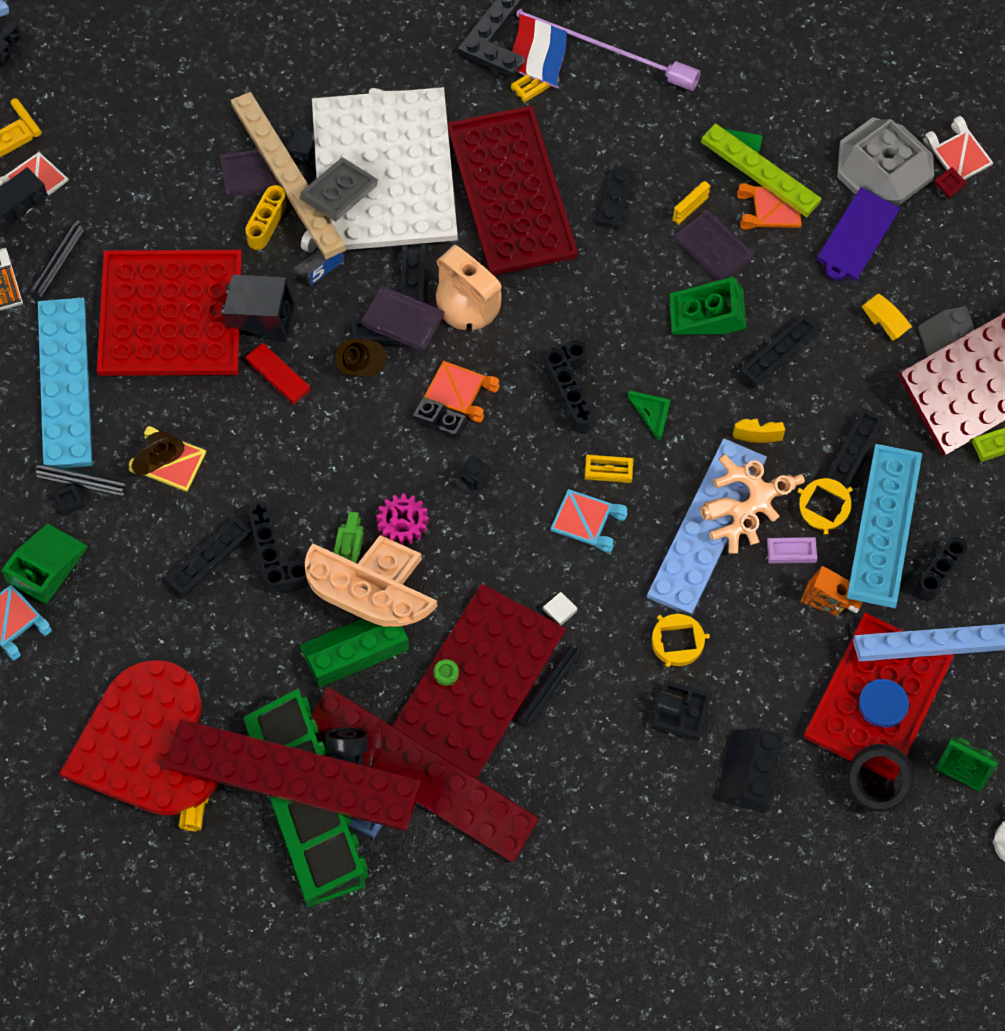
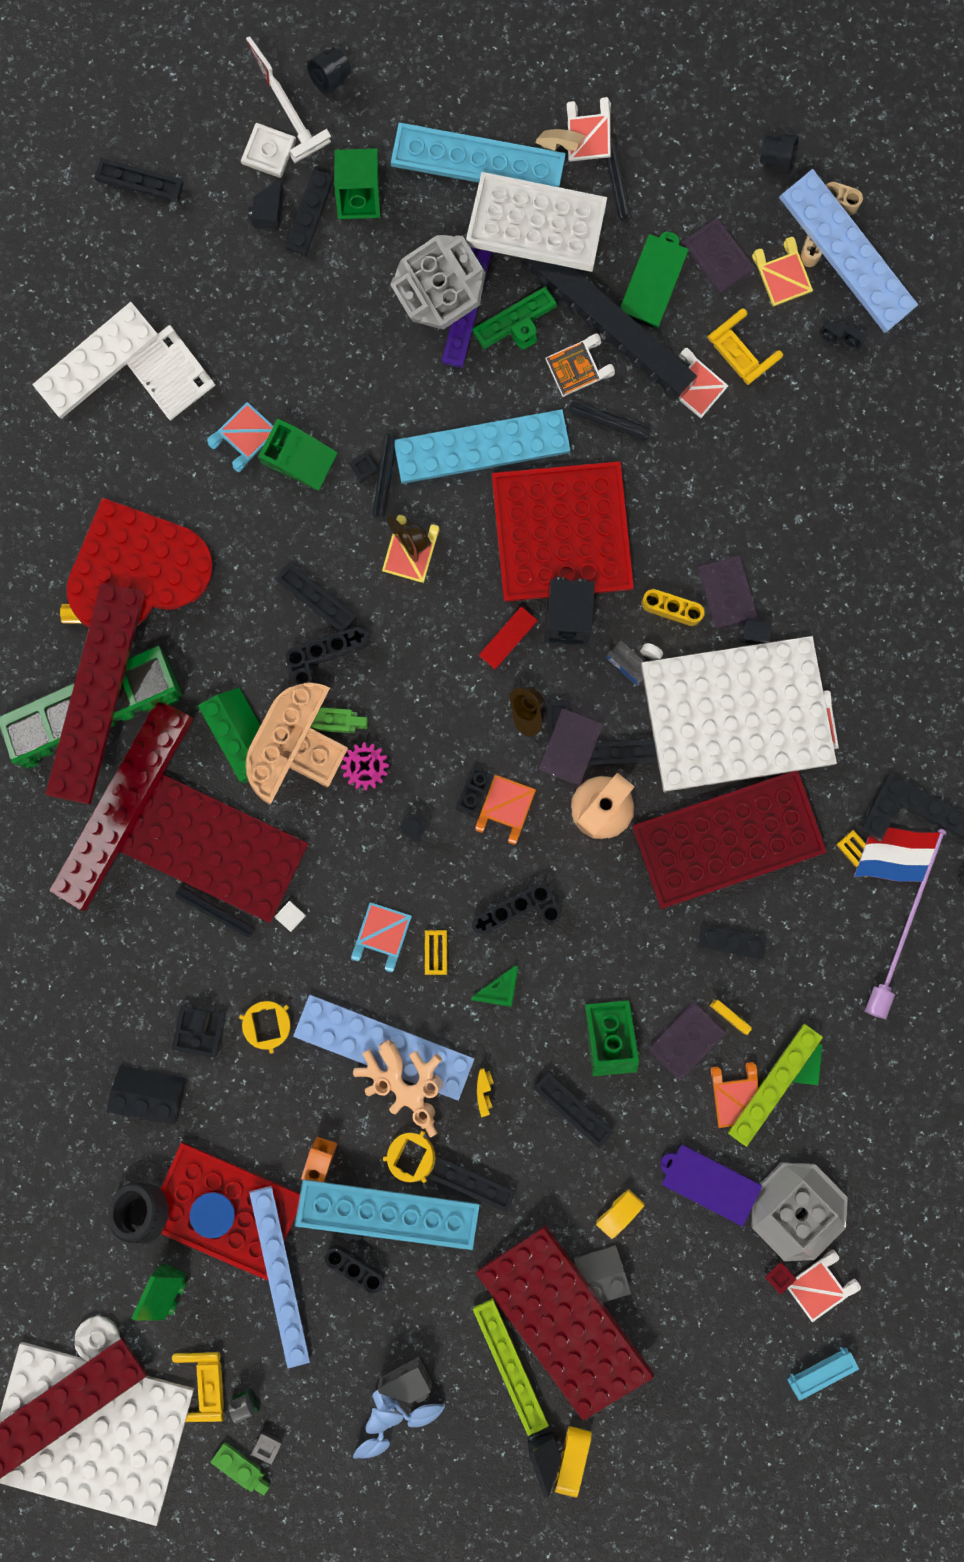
camera: 85 degrees right, 20 degrees up
(287, 174) = (718, 622): tan plate -> none
(338, 189) = (698, 672): dark grey plate -> none
(347, 744) = (130, 737): black piece -> none
(446, 672) = (215, 818): bright green tile -> none
(792, 550) = (366, 1127): lavender tile -> none

